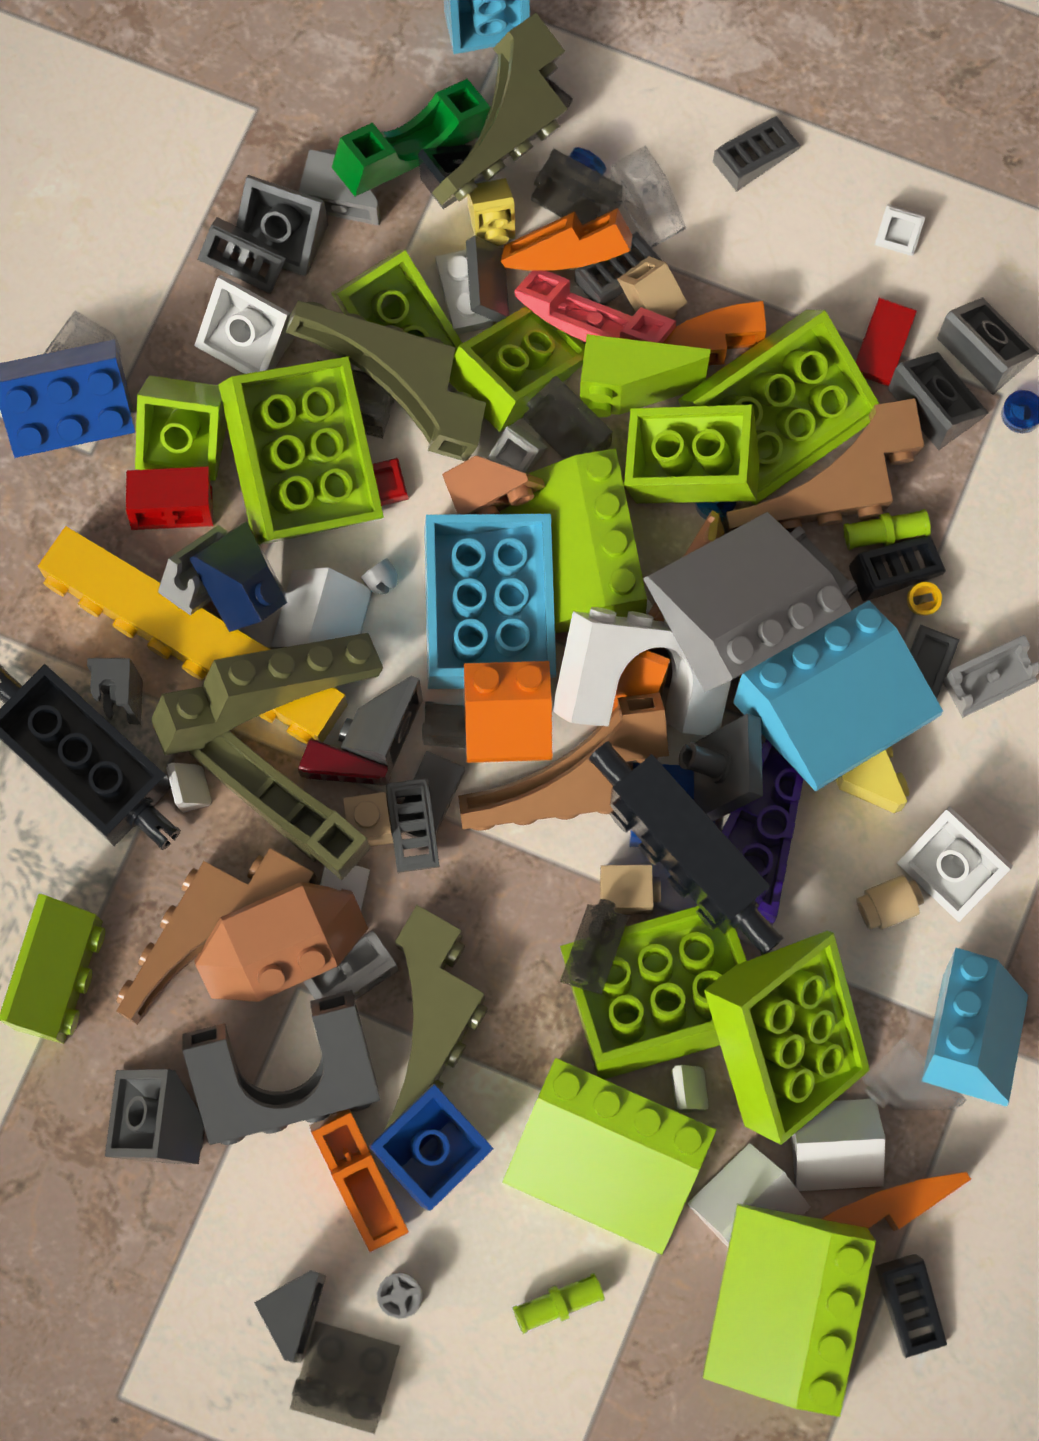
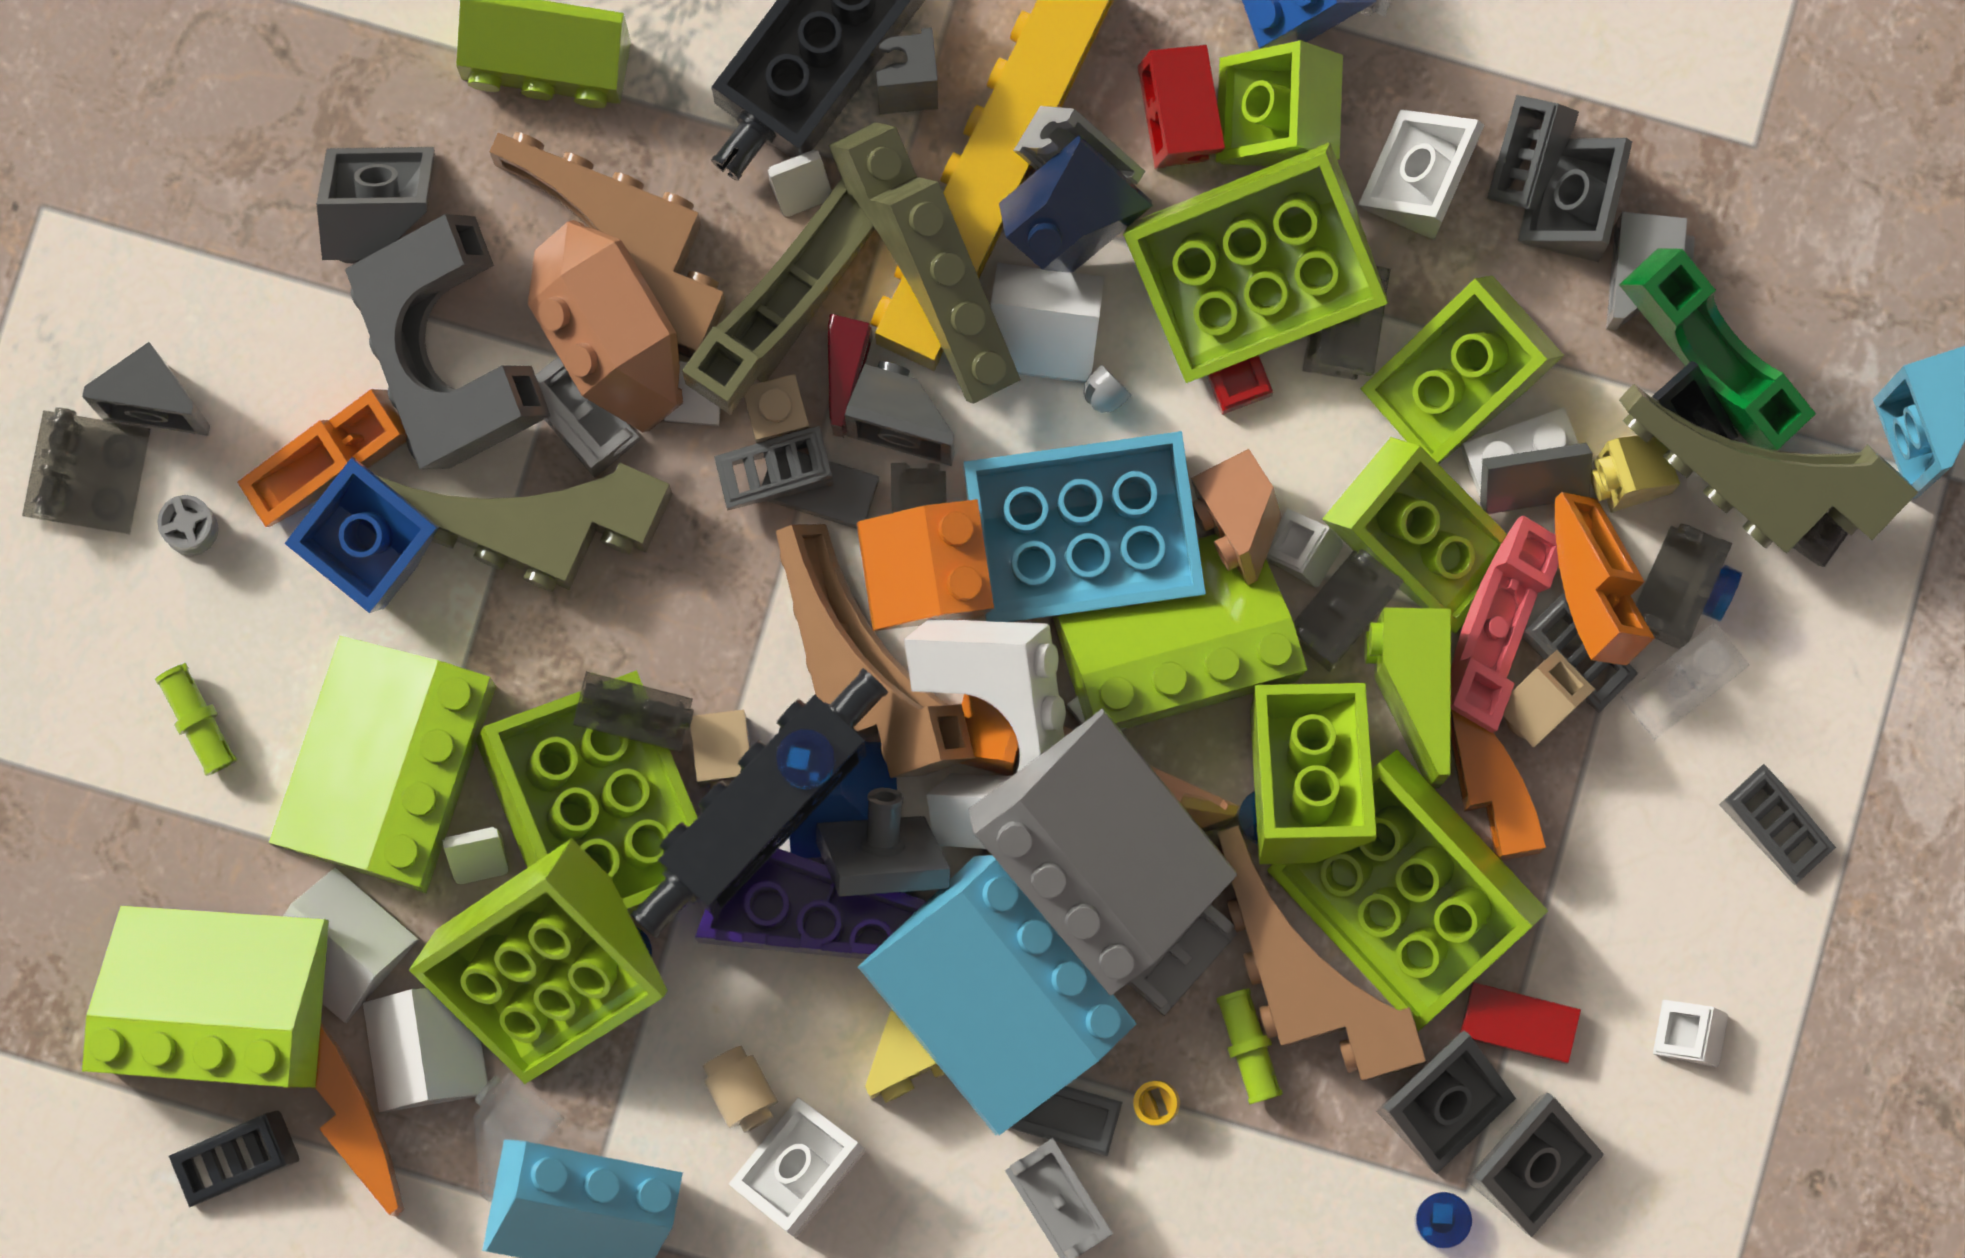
camera: 80 degrees right, 5 degrees up
(406, 366) = (1388, 385): olive arch -> none
(663, 797) = (805, 758): none -> clear blue tile
(873, 578) = (1208, 1036): black slope -> none

